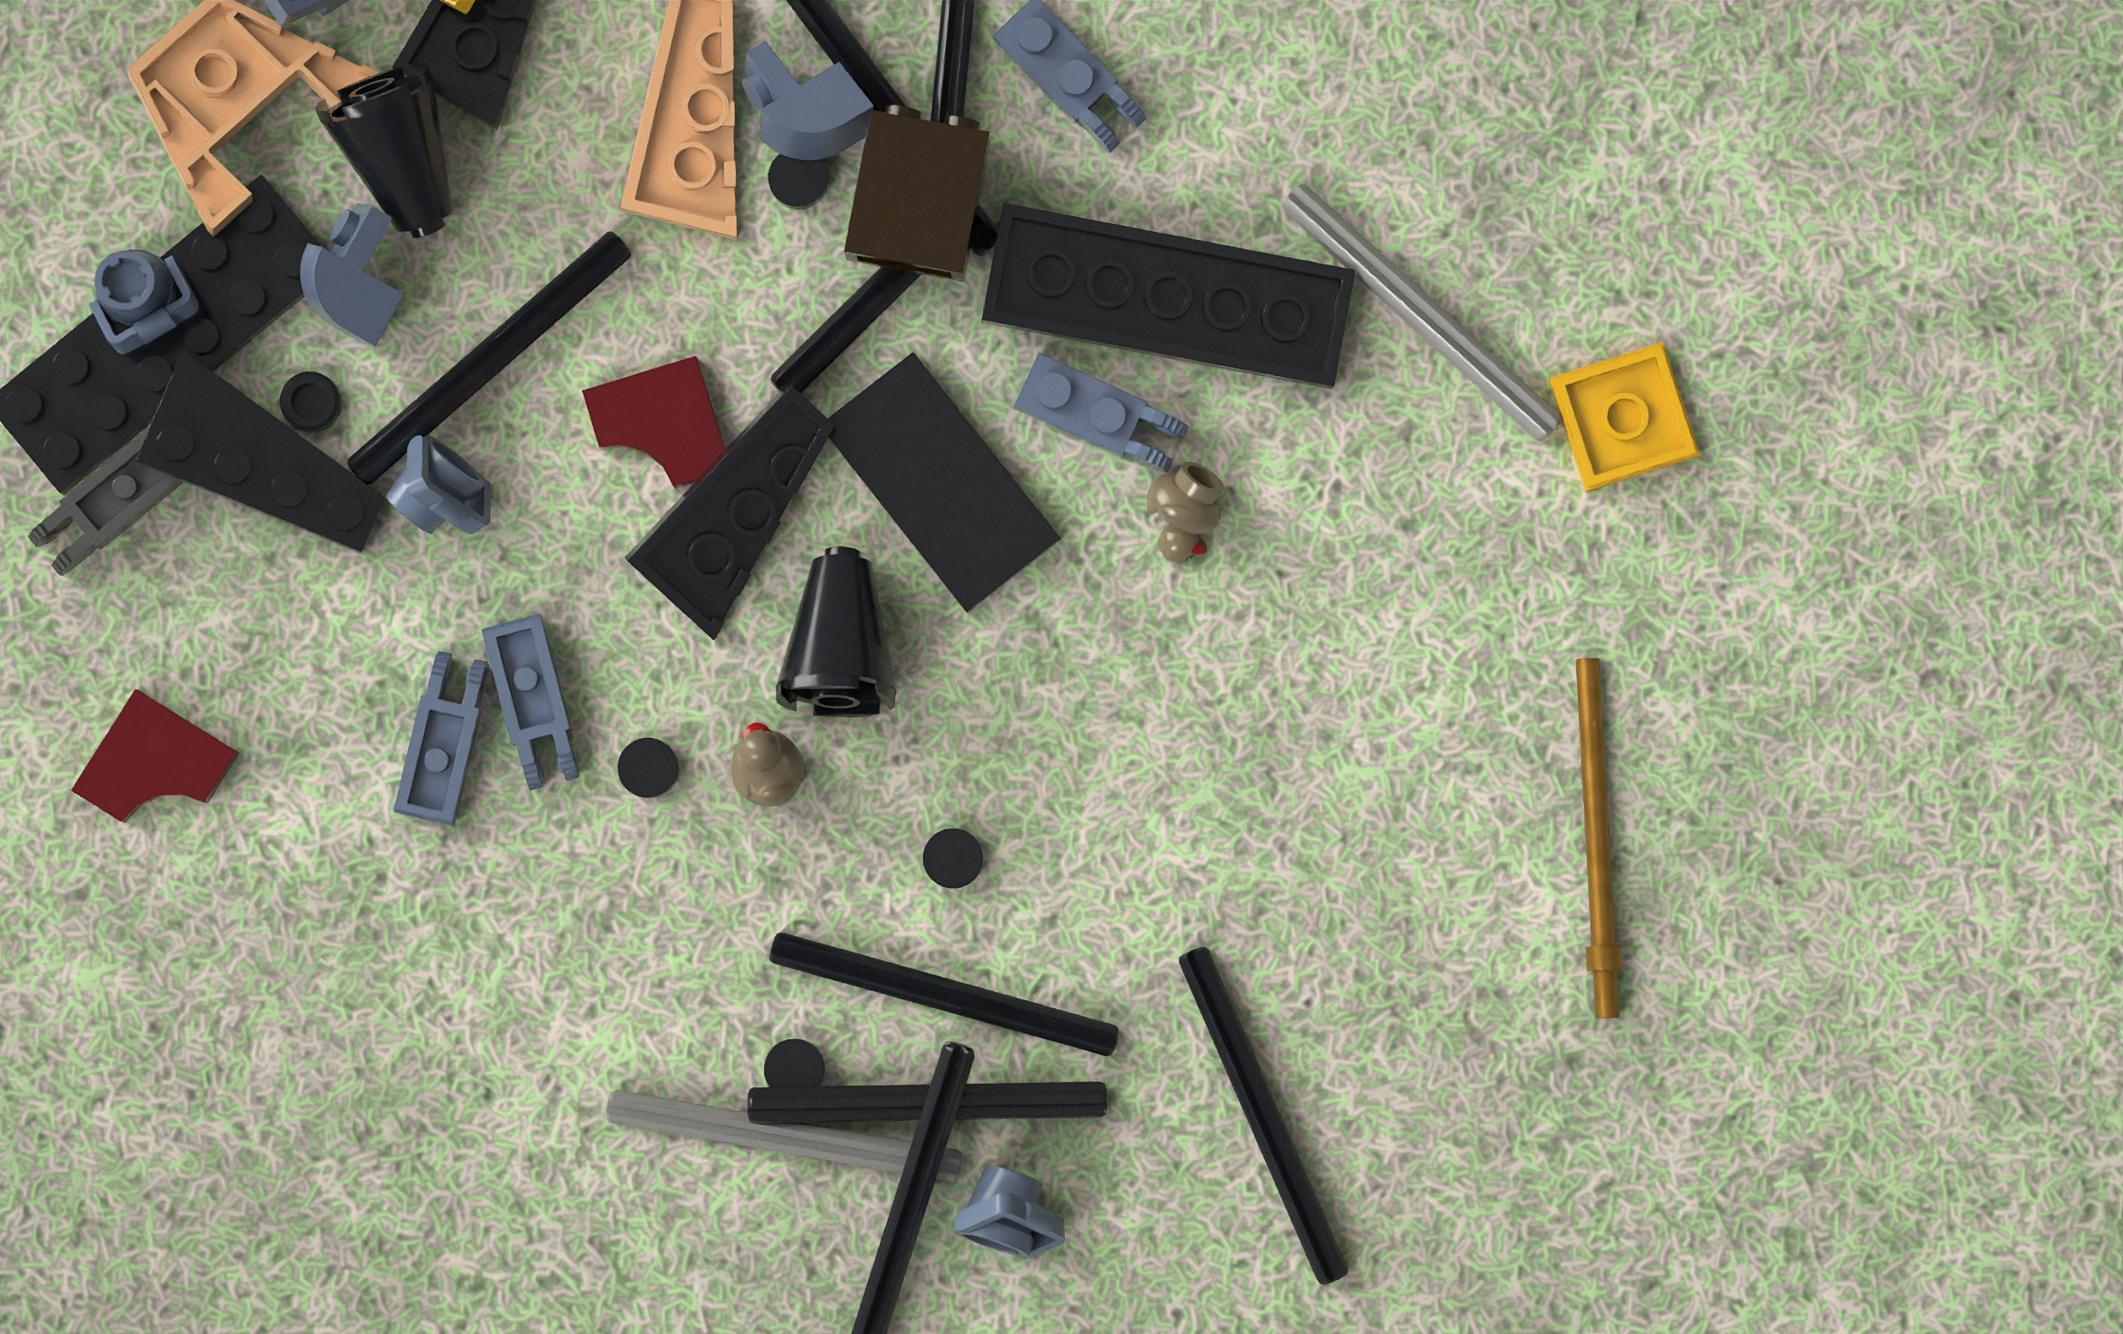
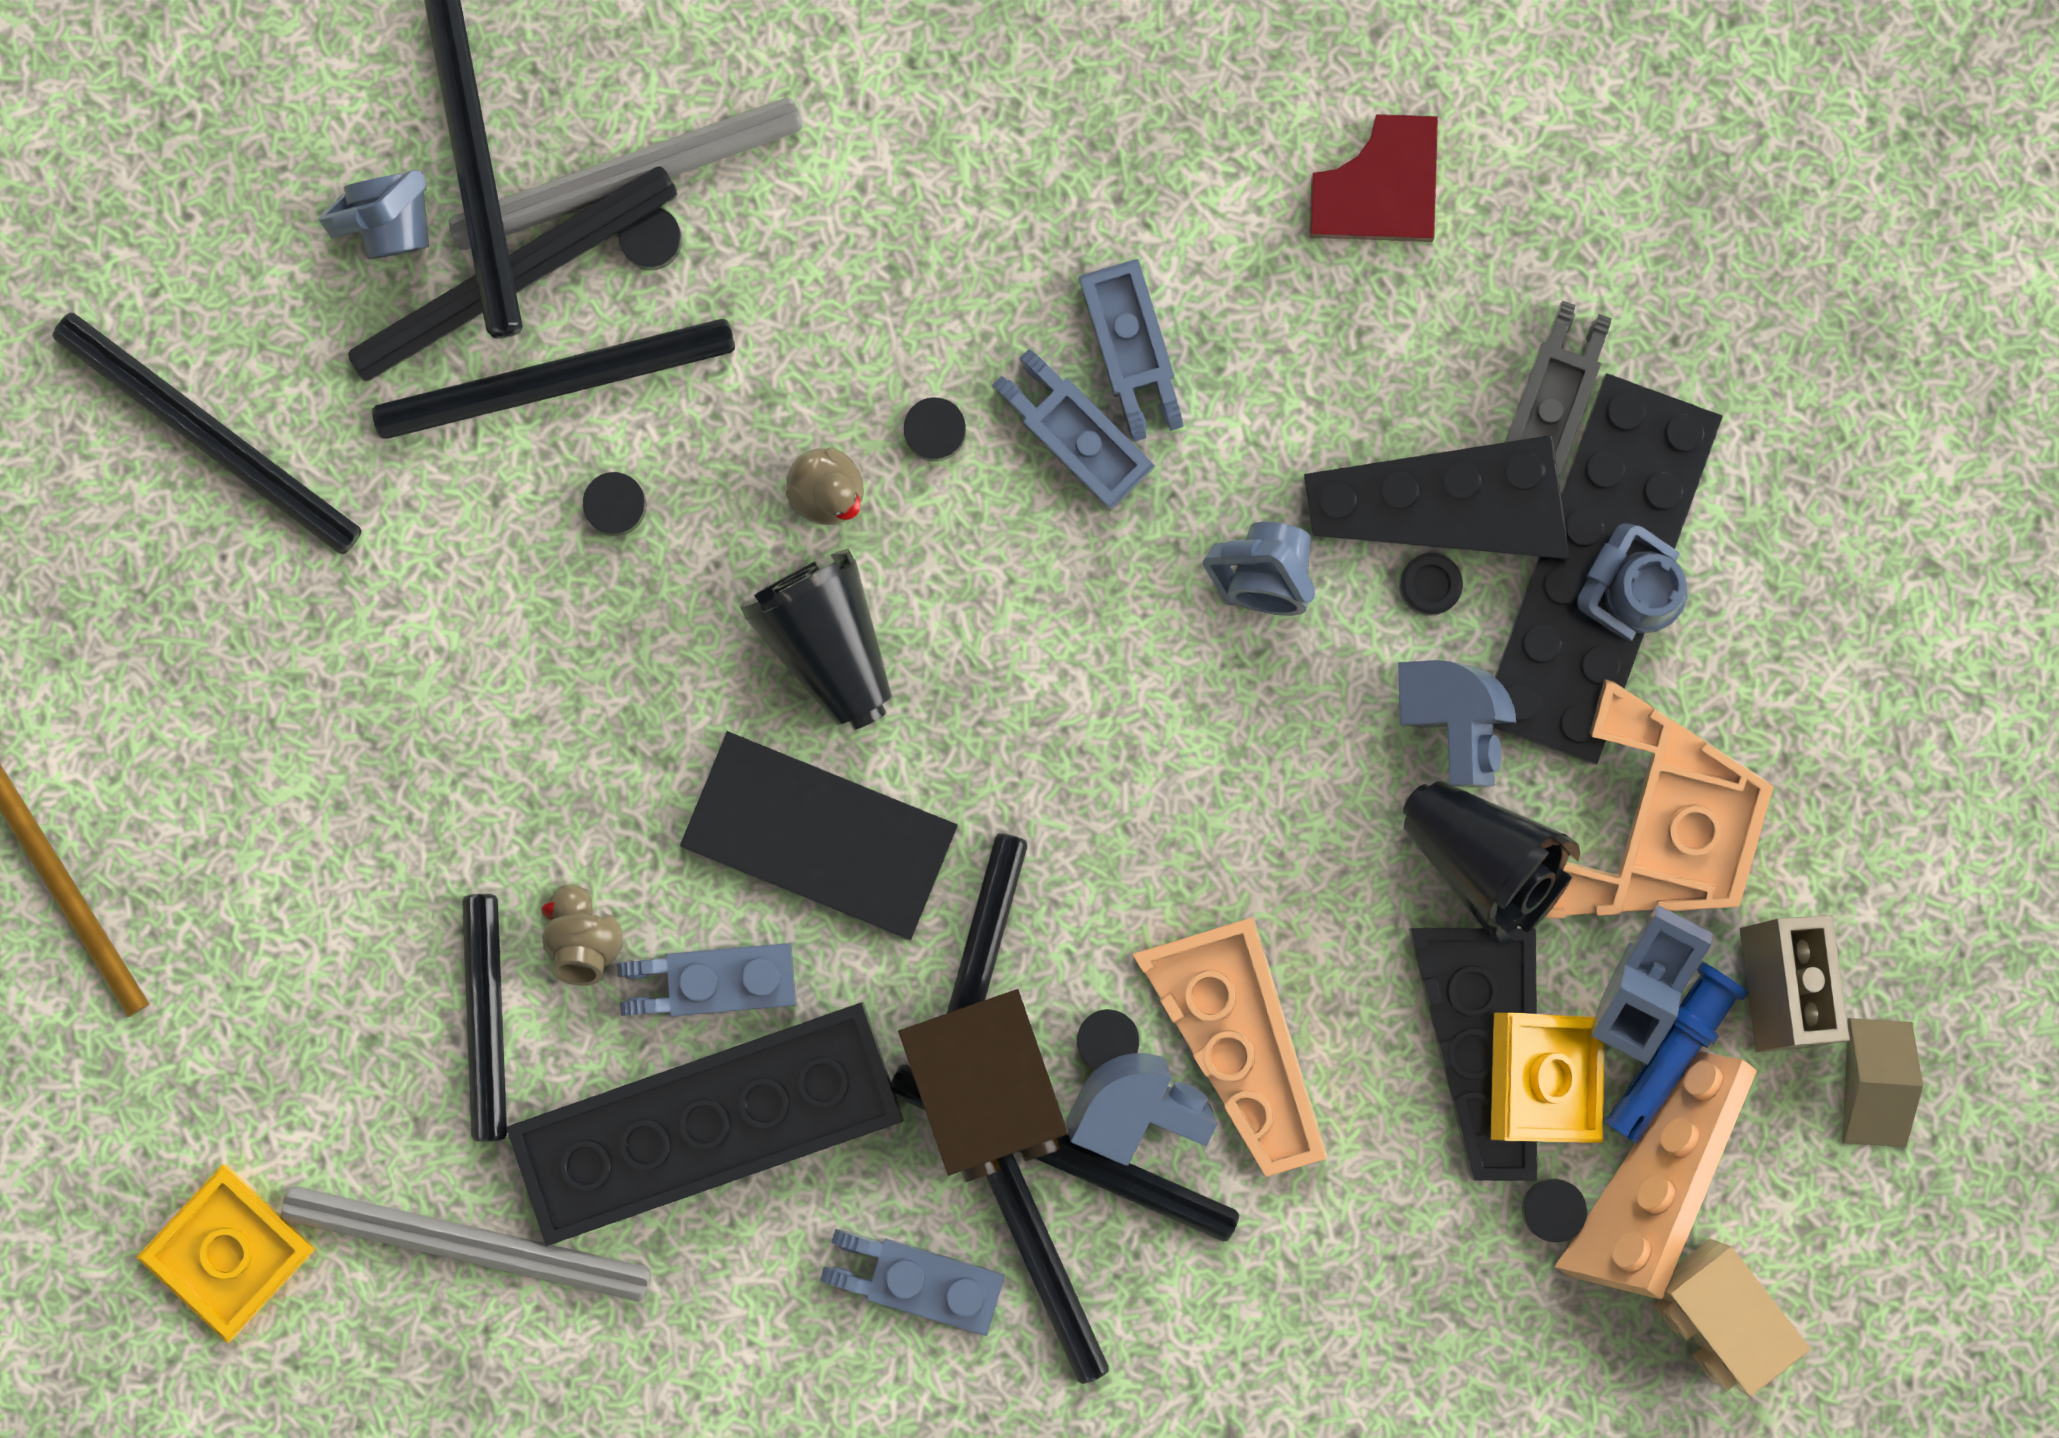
camera: 150 degrees right, 0 degrees up
(490, 357) = (1293, 716): black axle -> none
(660, 415) = (1103, 752): dark red tile -> none
(720, 525) = (994, 678): black wing -> none
(1302, 489) = (484, 1017): none -> black axle

